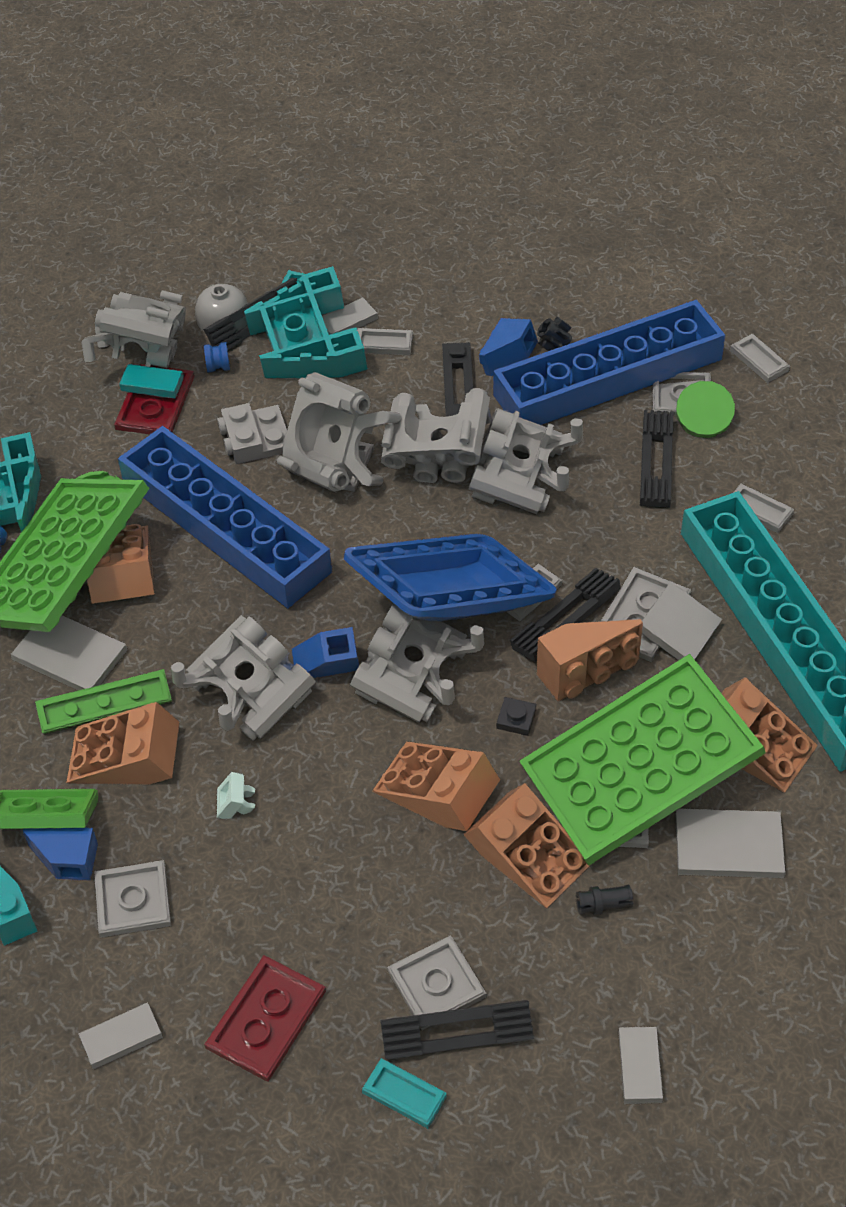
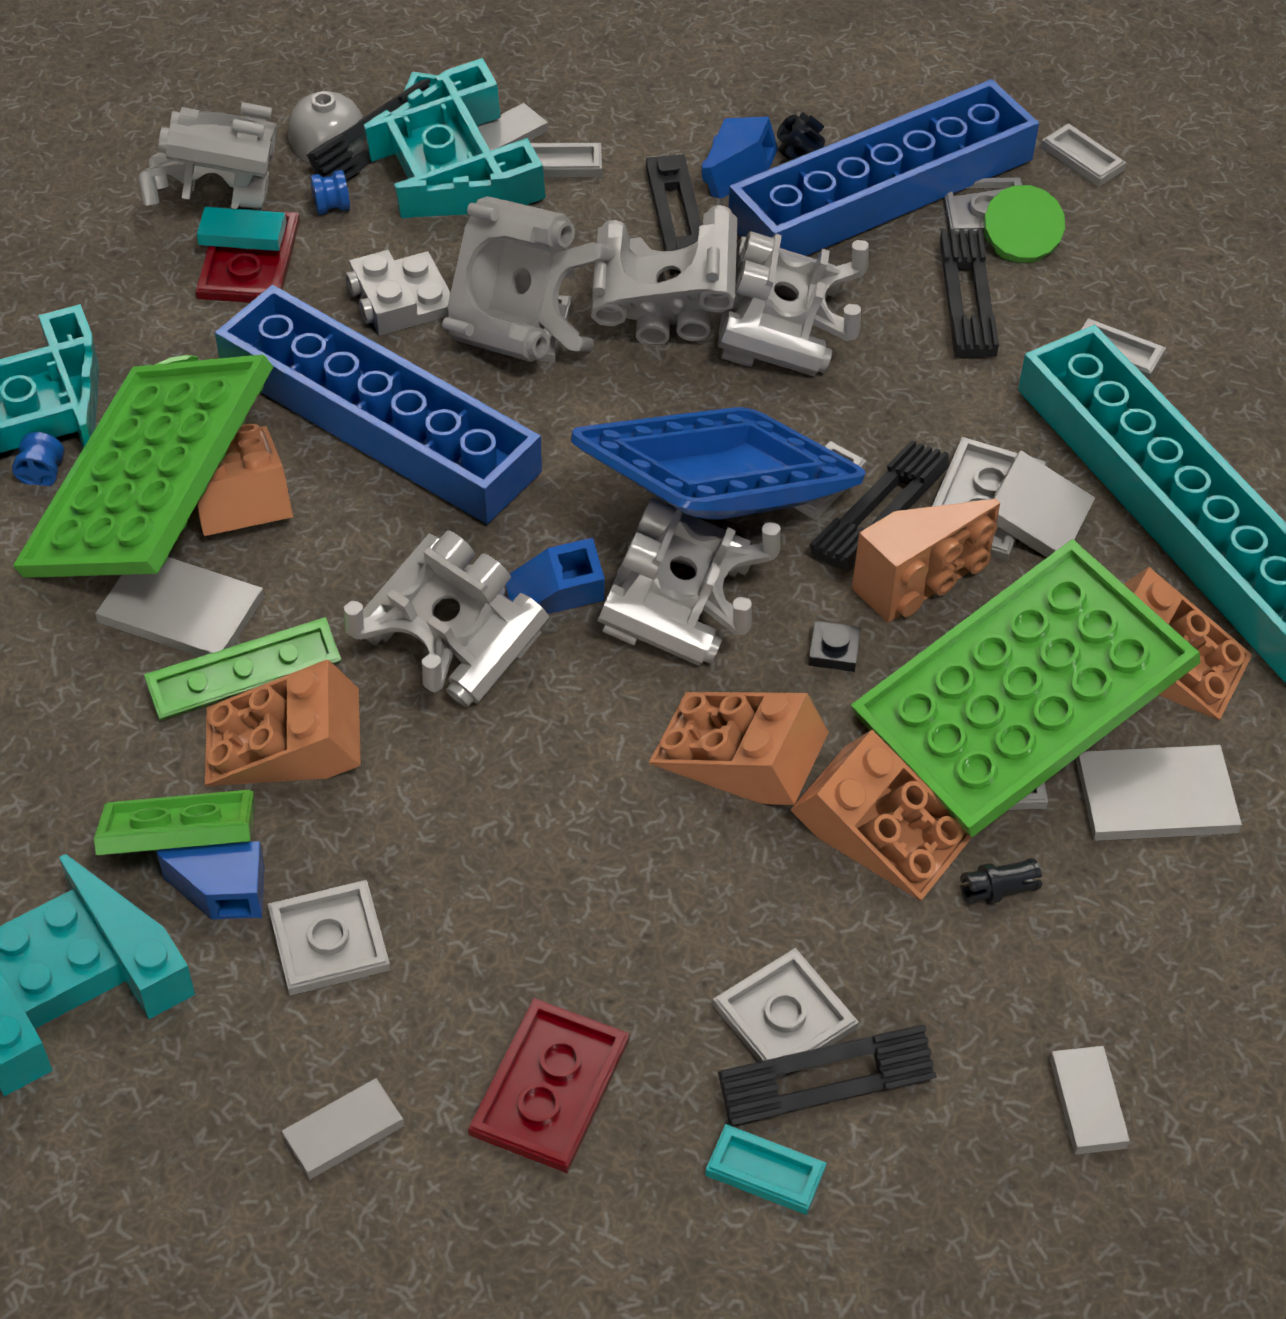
camera: 10 degrees left, 0 degrees up
(231, 796) = (452, 783): light aqua tile -> none

